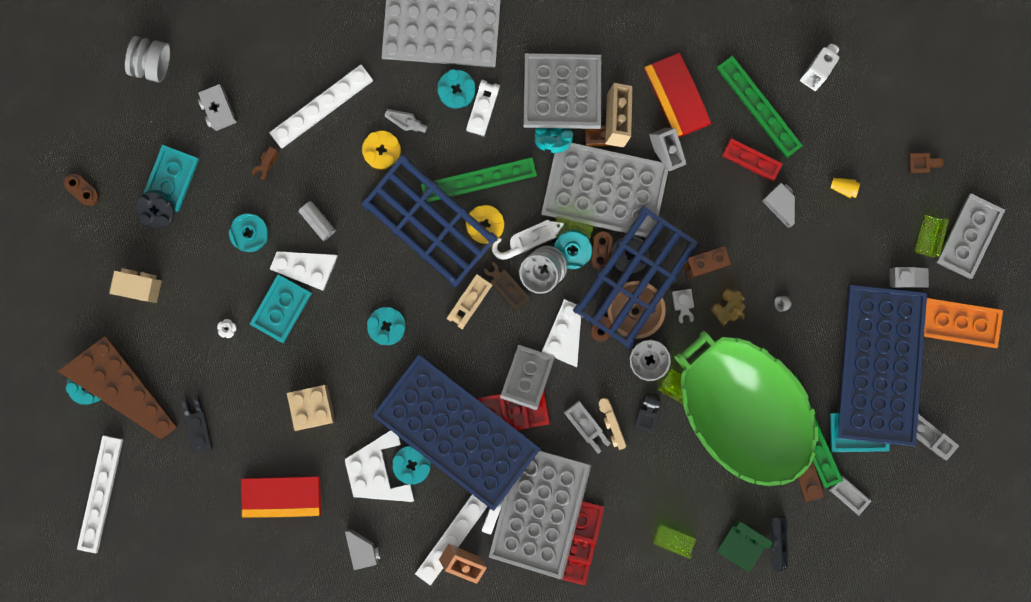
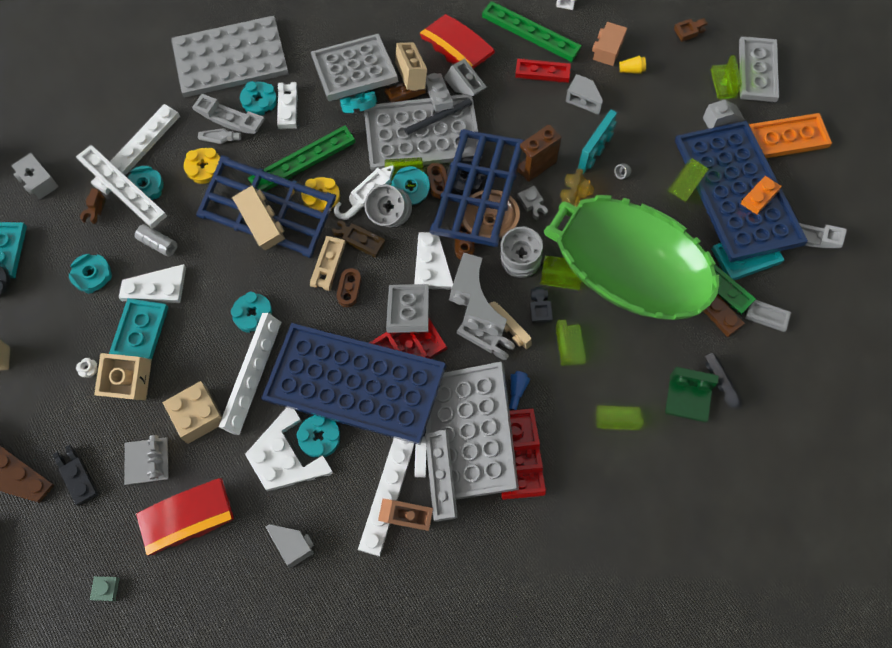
camera: 20 degrees left, 20 degrees down
(201, 531) = (104, 588): none -> sand green plate
(257, 354) = (123, 376): none -> tan brick
(259, 434) = (146, 460): none -> light grey hinge
(298, 154) = (121, 186): none -> white plate
(311, 145) = (152, 178): none -> teal plate
(369, 387) = (250, 374): none -> white plate
(419, 237) = (259, 217): none -> tan brick
(421, 102) = (227, 117): none -> light grey slope
(481, 334) = (349, 288): none -> reddish brown plate
(503, 541) = (441, 476): none -> light grey plate
(586, 379) = (468, 292): none -> light grey arch
(600, 480) = (519, 382): none -> blue cone
(626, 181) = (438, 116): none -> black piece
(637, 152) = (438, 92): none -> light grey plate
(661, 459) = (570, 343): none -> clear neon green panel
(769, 269) = (596, 143): none -> teal plate
(833, 152) = (609, 43): none -> nougat brick
(836, 340) = (688, 179): none -> clear neon green hinge
(897, 383) = (761, 195): none -> orange plate

